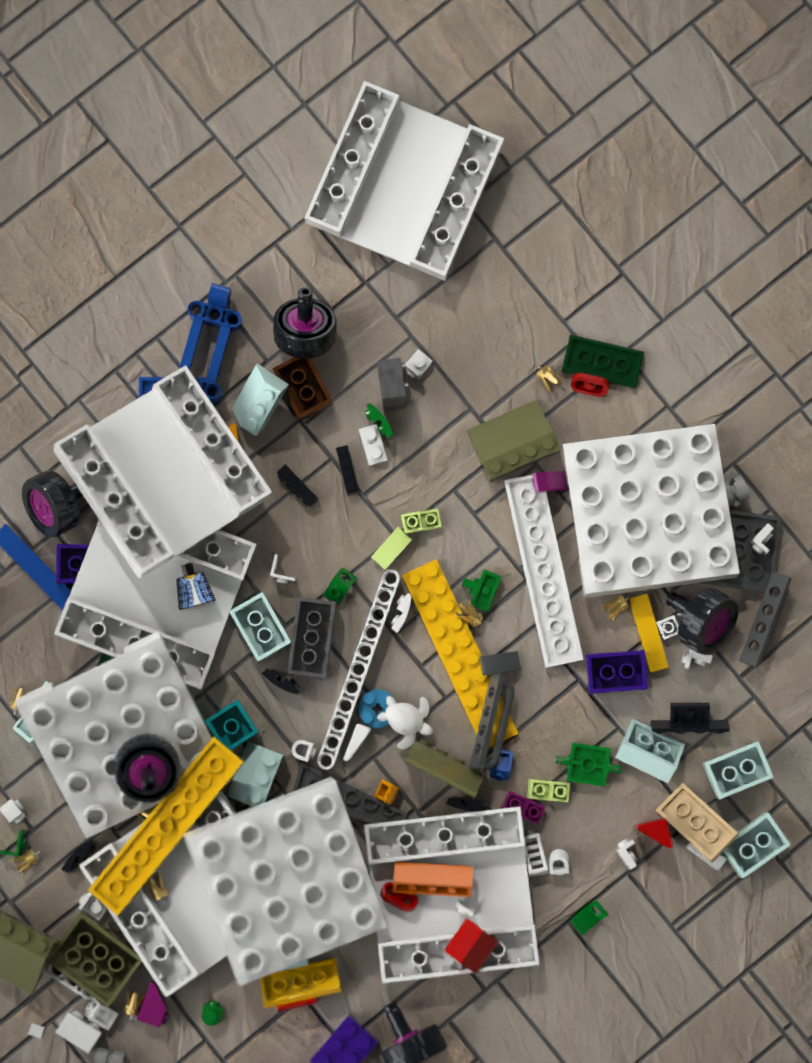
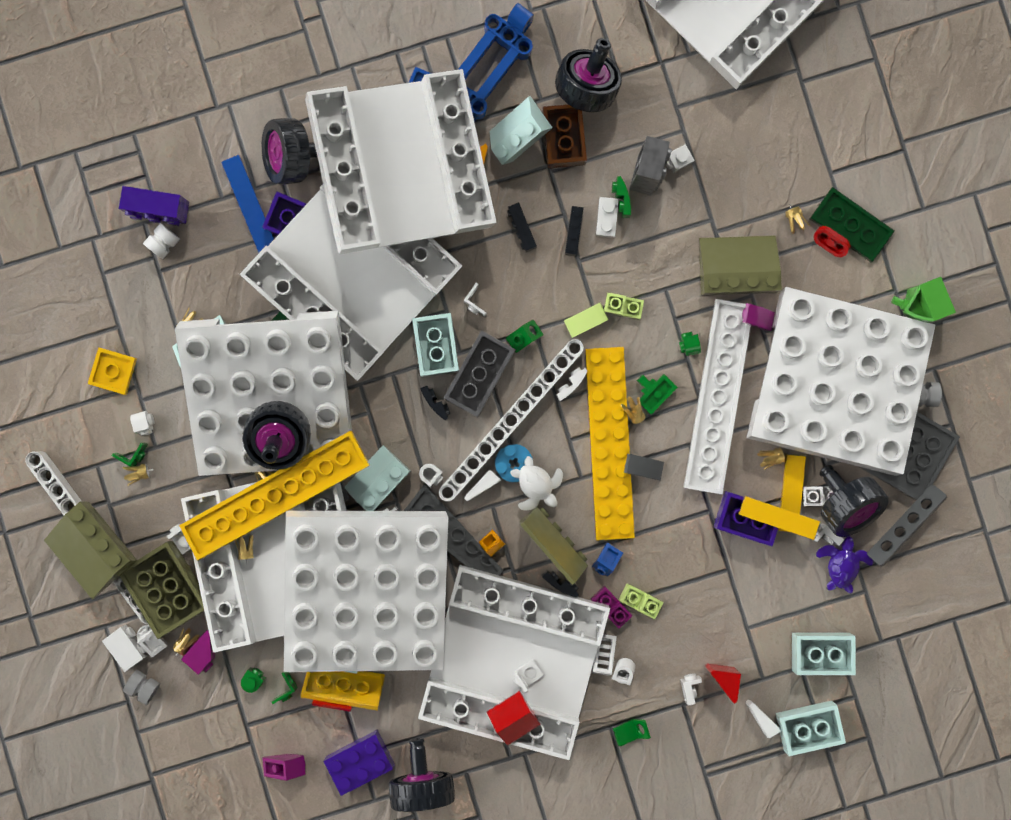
camera: 20 degrees right, 5 degrees up
(36, 1030) = (87, 630): white window -> none
(83, 852) = (191, 486): black slope -> none
(193, 588) = (387, 284): torso -> none
(232, 725) = (373, 425): teal brick -> none
(251, 1013) = (292, 685): none -> green bracket
(398, 899) = (465, 644): red plate -> none
(433, 879) = (502, 642): orange brick -> none
(486, 724) = (611, 516): dark grey piece -> none
(497, 532) = (689, 344): none -> green plate
(588, 764) = (687, 592): green plate -> none
(642, 659) = (779, 517): none -> yellow tile
(650, 751) = (749, 603): light aqua slope -> none
(689, 718) = (797, 587): black bracket -> none
(697, 406) = (926, 301): none -> bright green piece
(697, 822) = (767, 687): tan plate -> none
(723, 679) = (844, 564): none -> dark purple animal
(764, 535) = (937, 447): white bracket -> none

